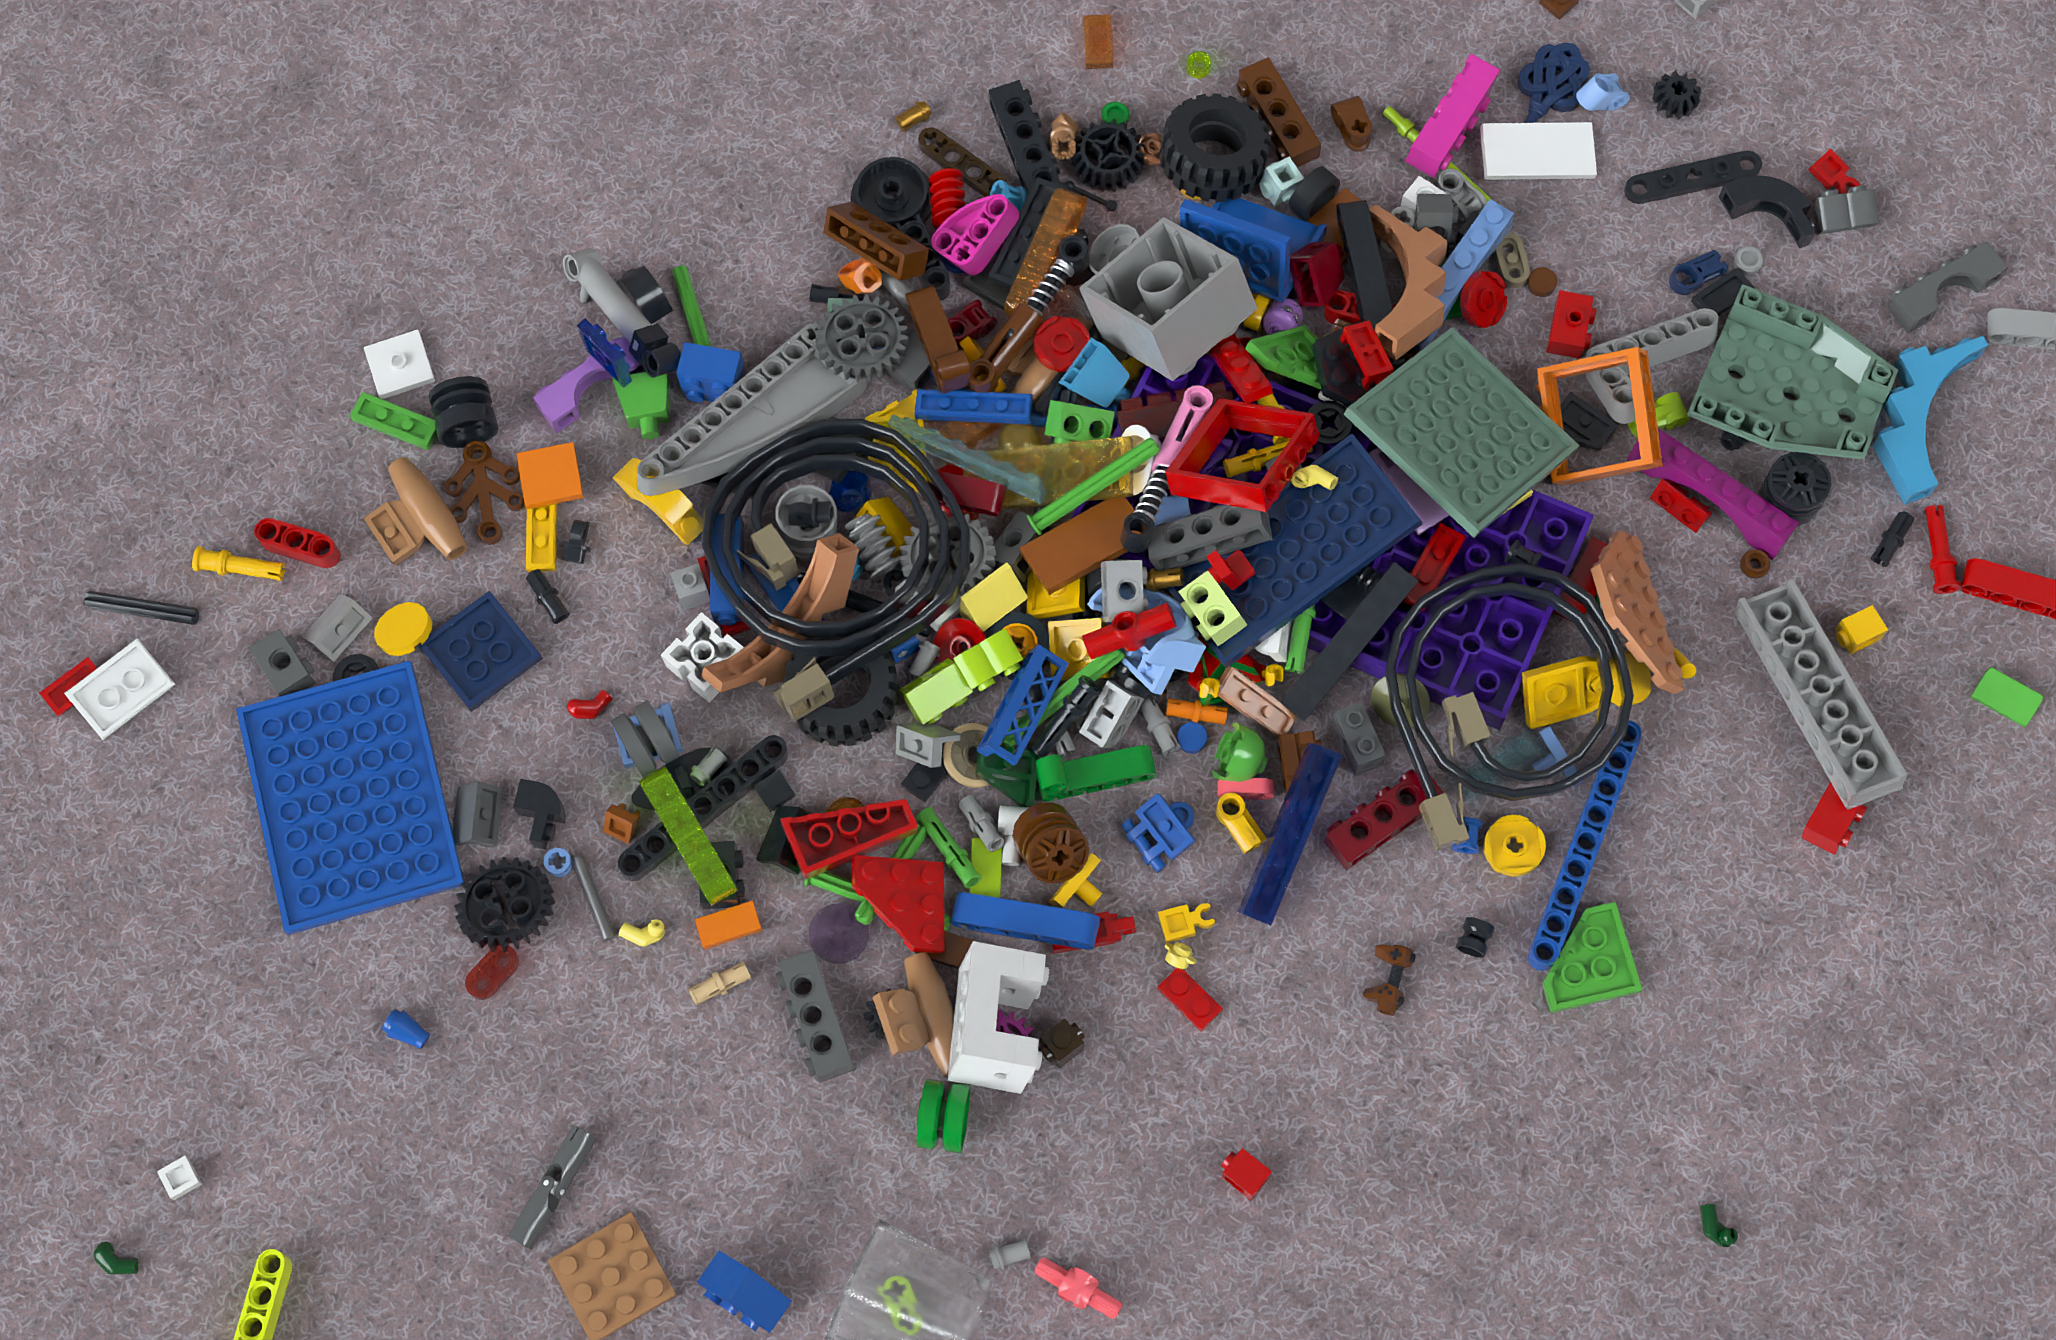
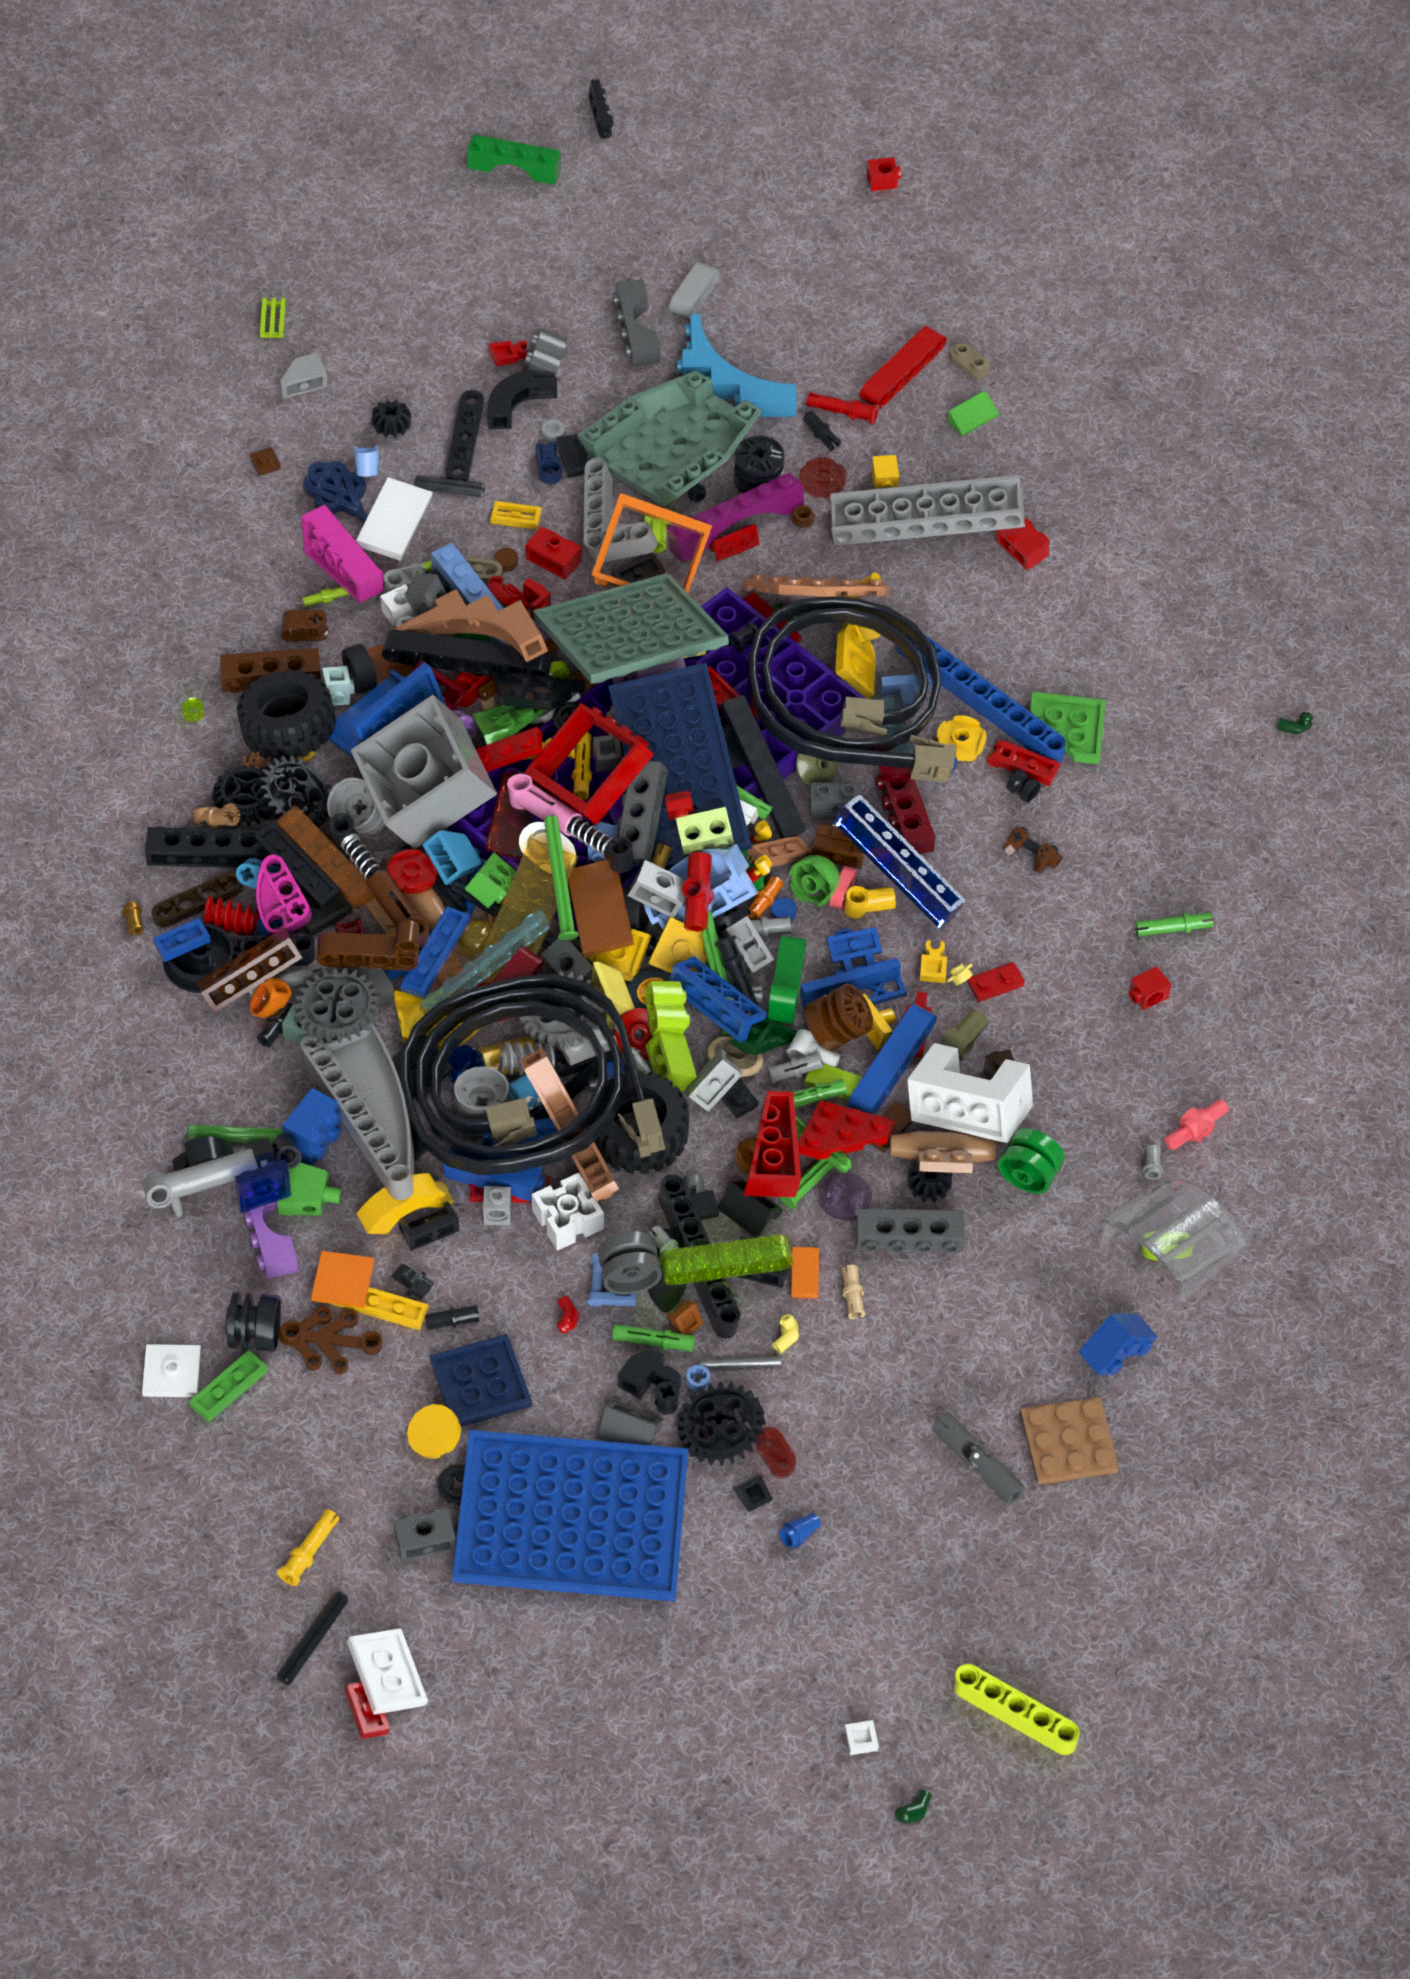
camera: 75 degrees left, 15 degrees down
(288, 534) = (314, 1481): red beam -> none
(337, 627) = (403, 1485): light grey panel -> none
(418, 515) = (331, 1393): medium nougat plate -> none
(440, 966) = (753, 1492): none -> black slope
(512, 832) = (664, 1396): none -> black bush
(591, 812) = (654, 1338): none -> bright green pin
(646, 532) = (430, 1227): none -> black hinge
(794, 771) = (694, 1183): none -> dark grey hinge
(810, 514) = (484, 1083): black piece -> none
(890, 165) = (181, 939): none -> blue plate
(1095, 986) = (965, 1032): none -> olive piece
(1098, 41) = (134, 768): clear orange plate -> none
(1098, 184) = (303, 786): none -> black gear
(1115, 111) = (205, 781): green tile -> none
(1123, 845) = (862, 978): none -> blue fence
(1313, 475) = (632, 719): light yellow arm -> none
(1353, 1175) = (1174, 924): none -> bright green pin
(1367, 352) = (534, 662): red hinge -> none
(1494, 340) = (536, 595): none -> red bracket
(1511, 928) = (1033, 764): none -> red plate
(1614, 290) = (515, 518): none -> yellow tile
(1616, 188) = (450, 486): none -> black axle
(1820, 574) = (823, 484): none -> clear red tile

